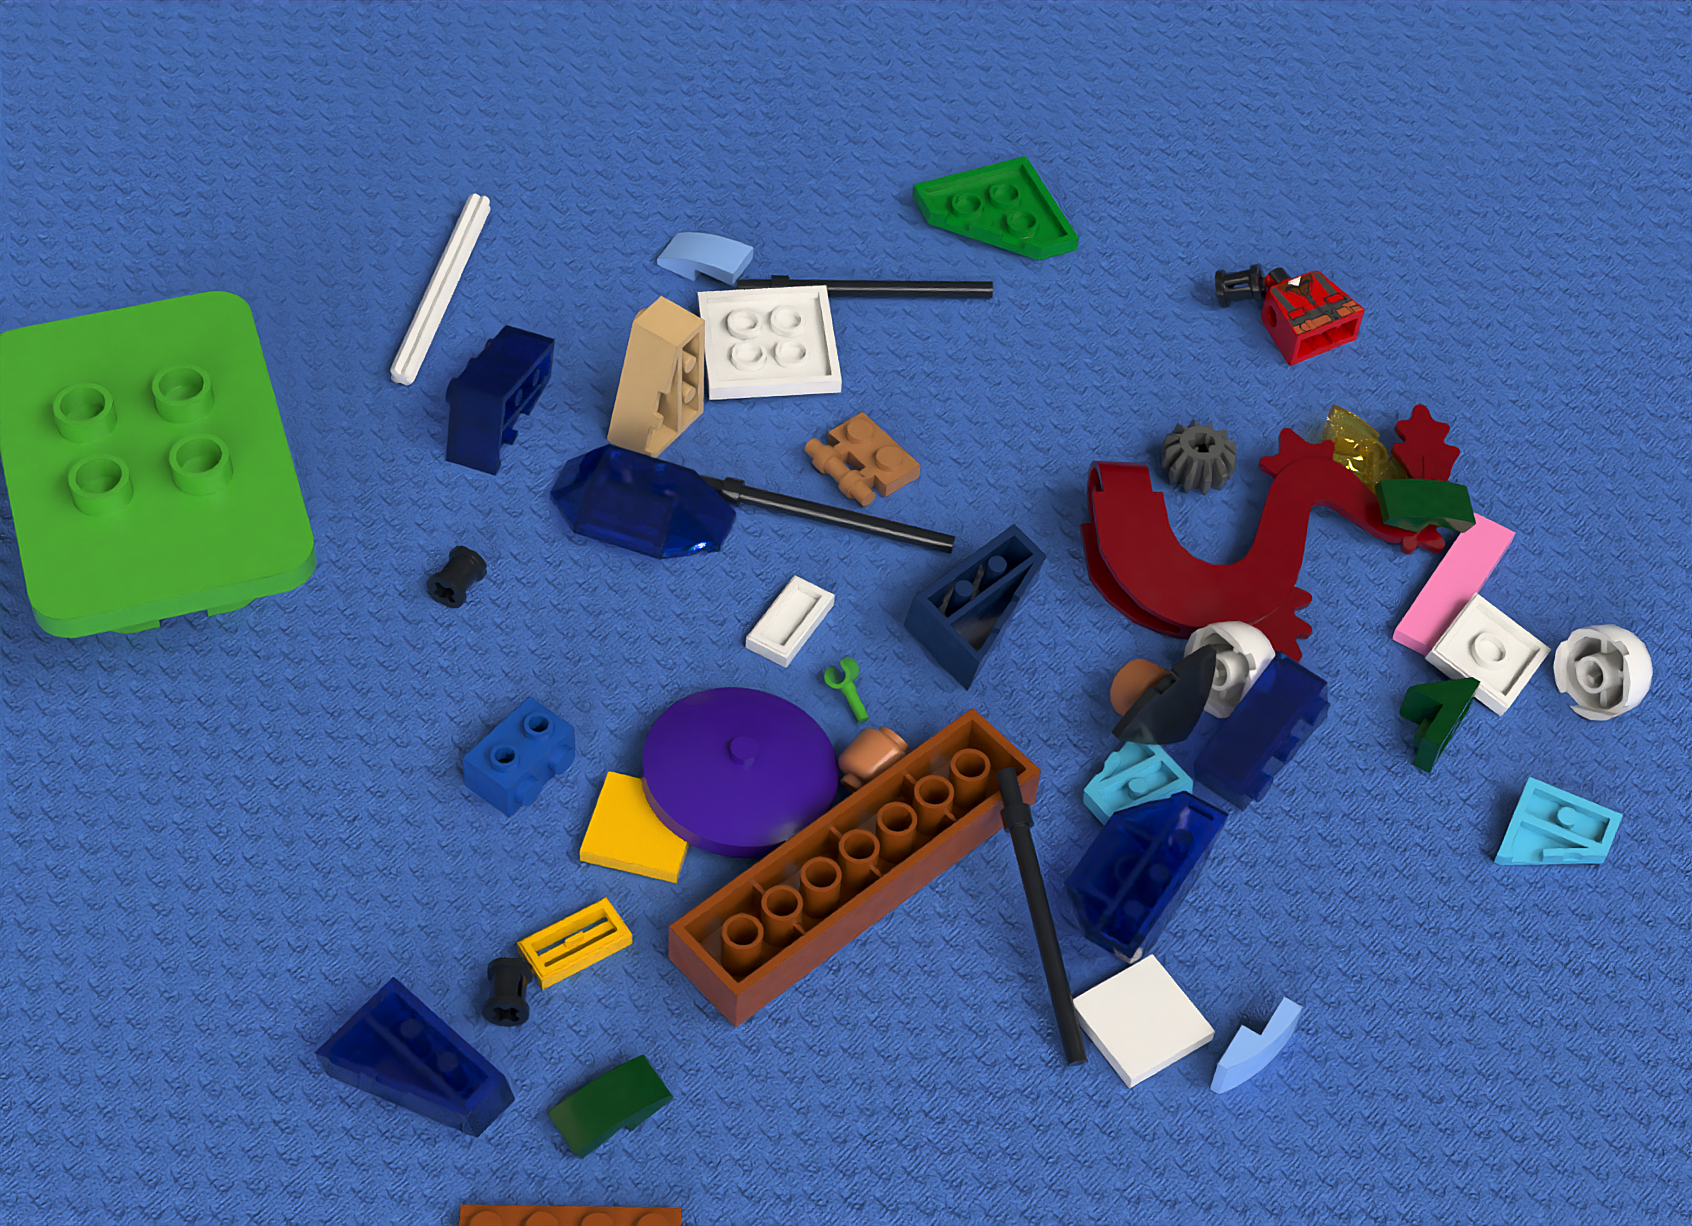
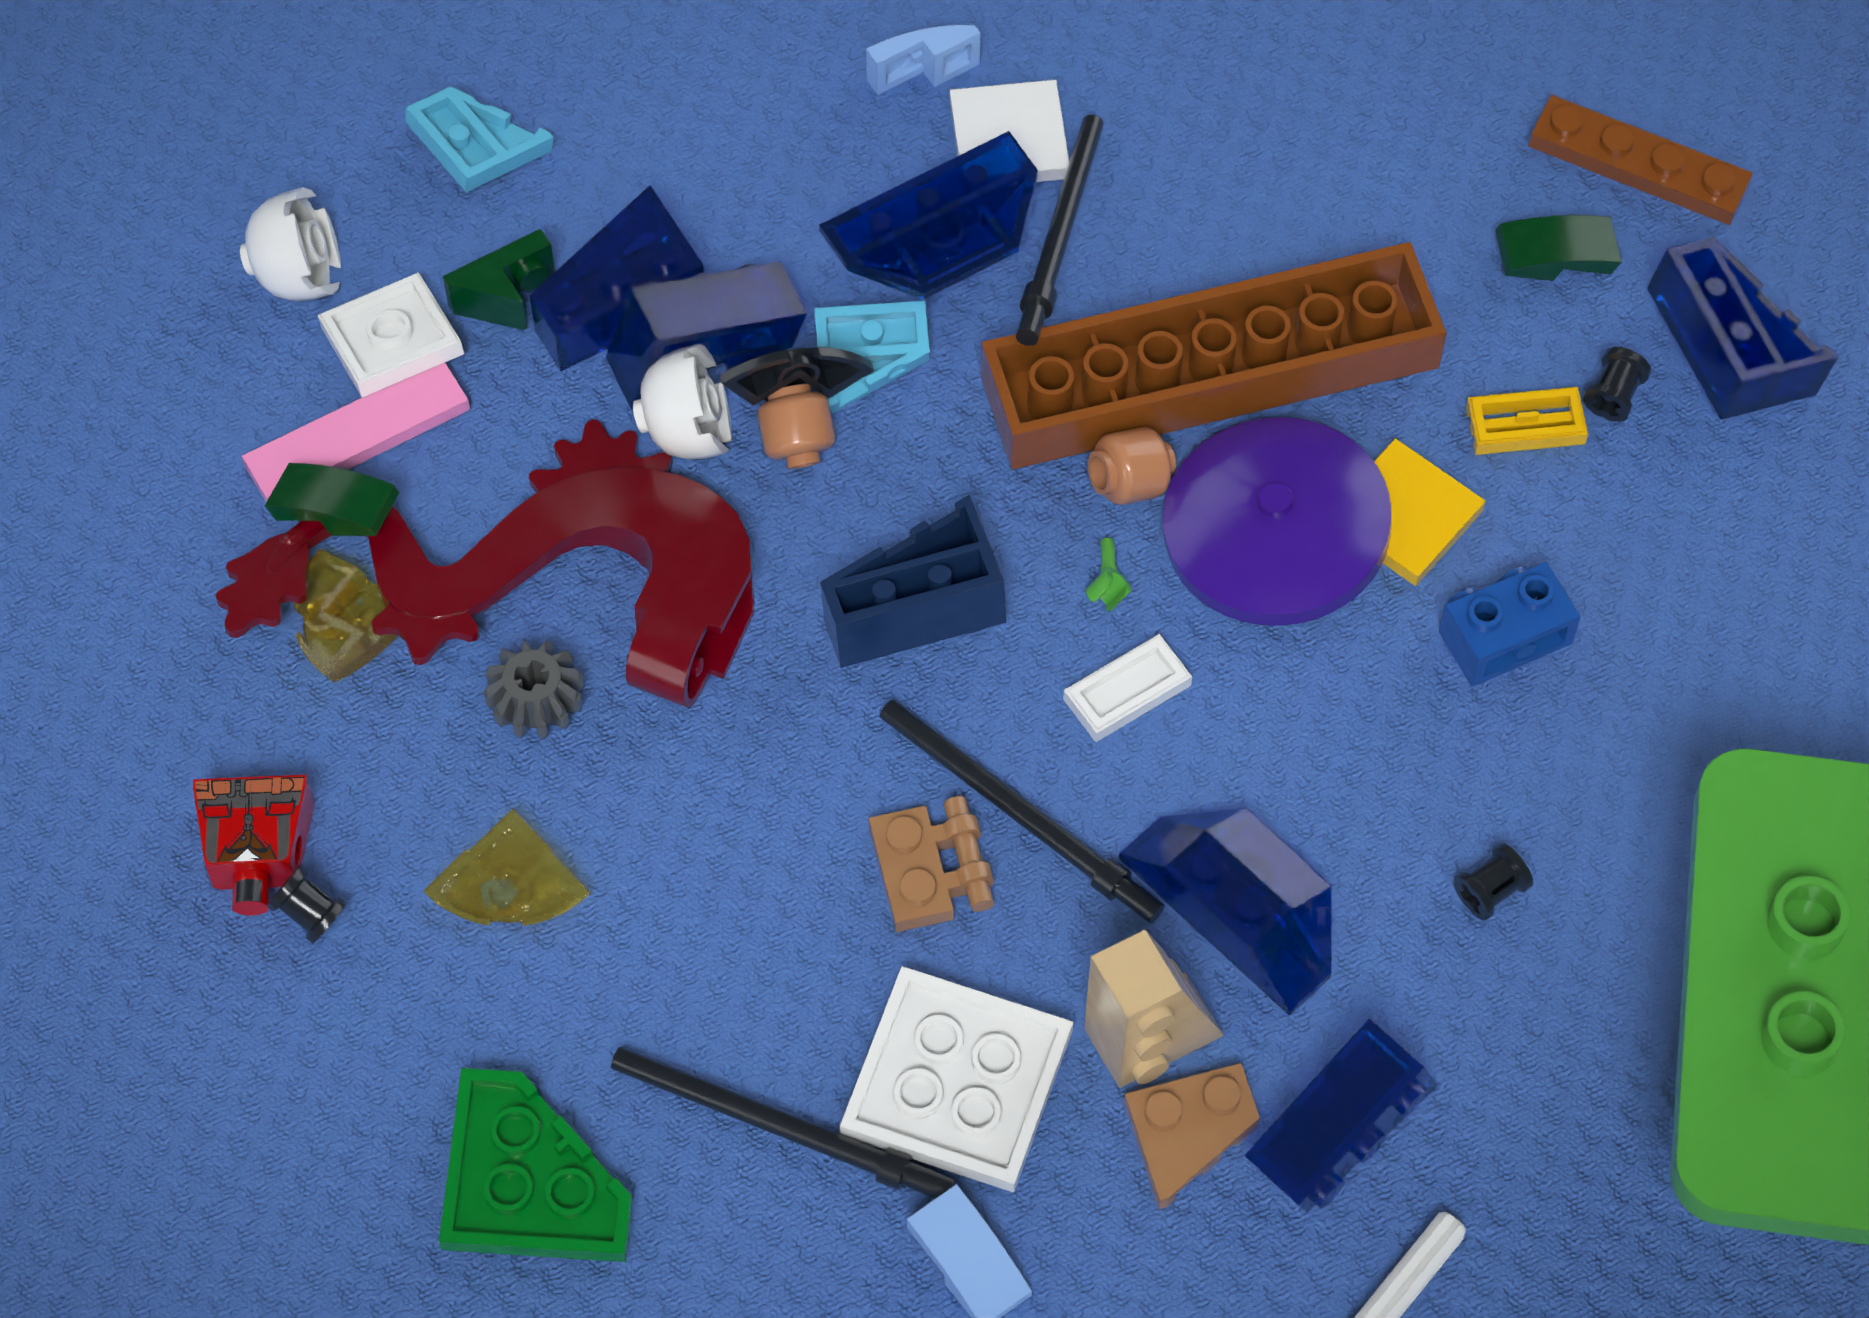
camera: 150 degrees left, 10 degrees up
(594, 374) = (1189, 1125): none -> medium nougat wing
(1131, 358) = (508, 878): none -> clear yellow brick
(1351, 750) = (585, 297): none -> clear blue wedge

